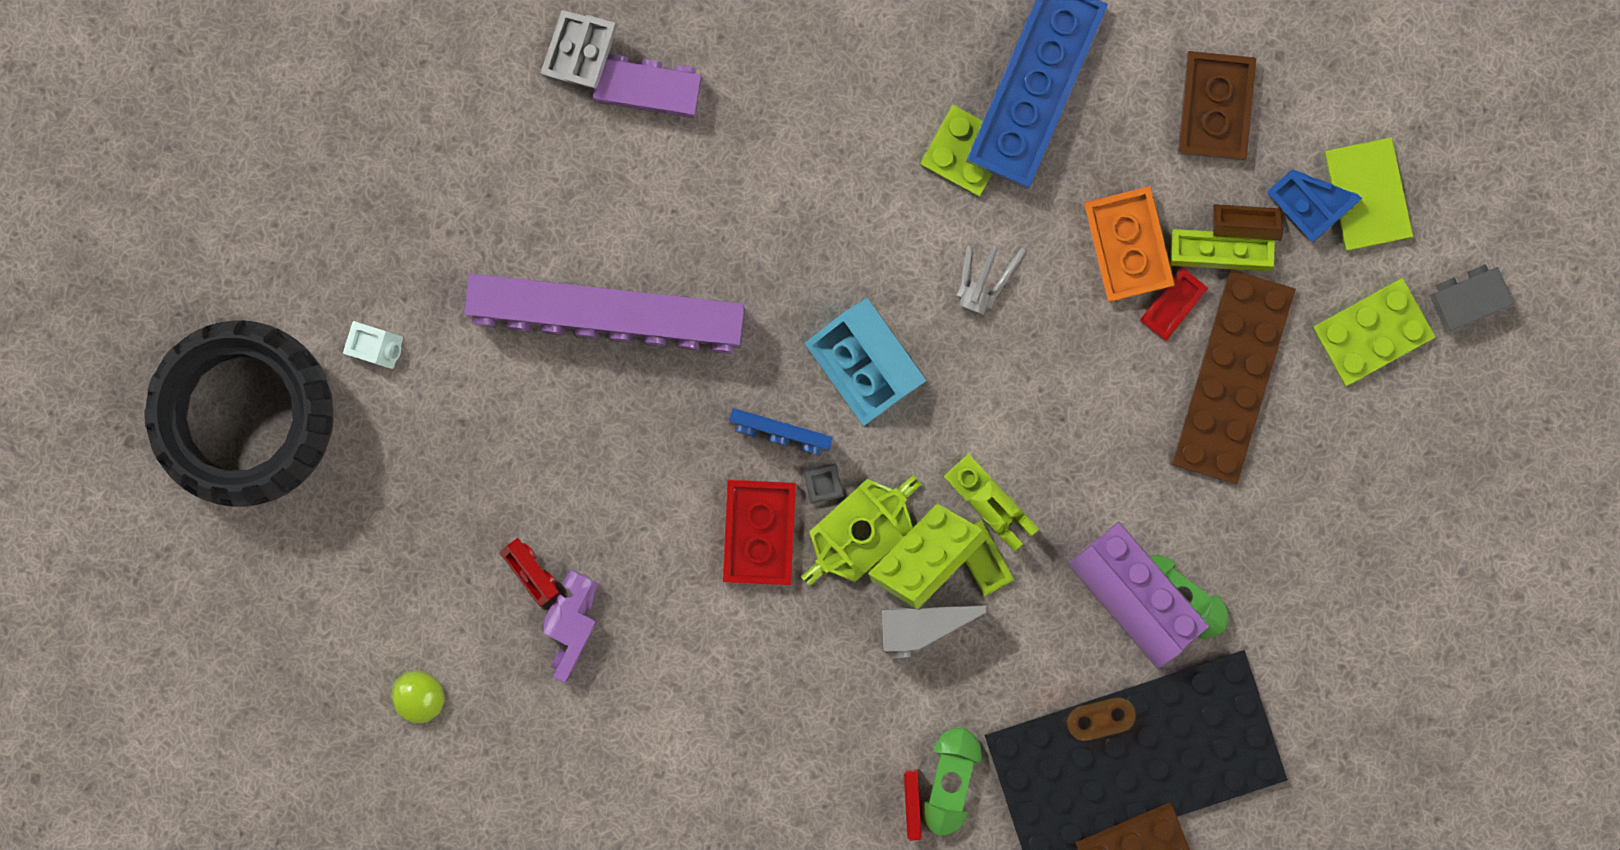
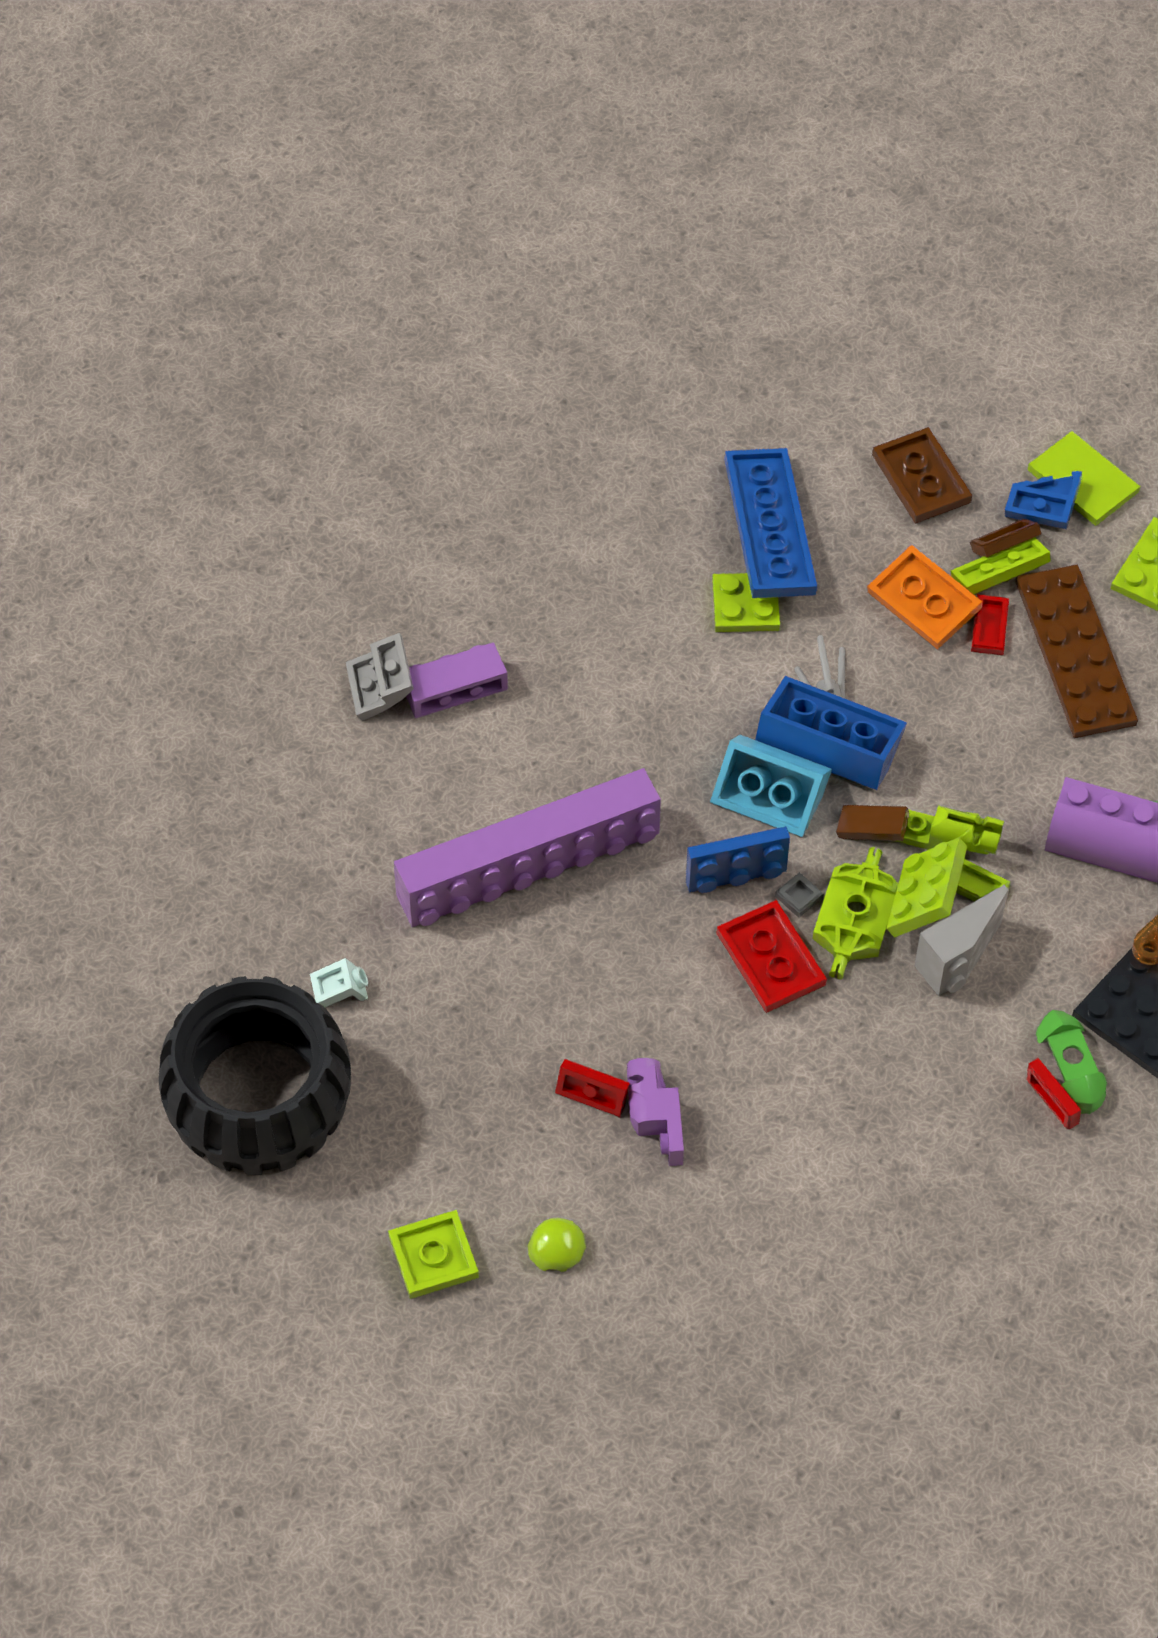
camera: 30 degrees left, 30 degrees down
(310, 648) = (433, 1254): none -> lime plate
(930, 453) = (873, 822): none -> reddish brown tile
(949, 342) = (831, 731): none -> blue slope

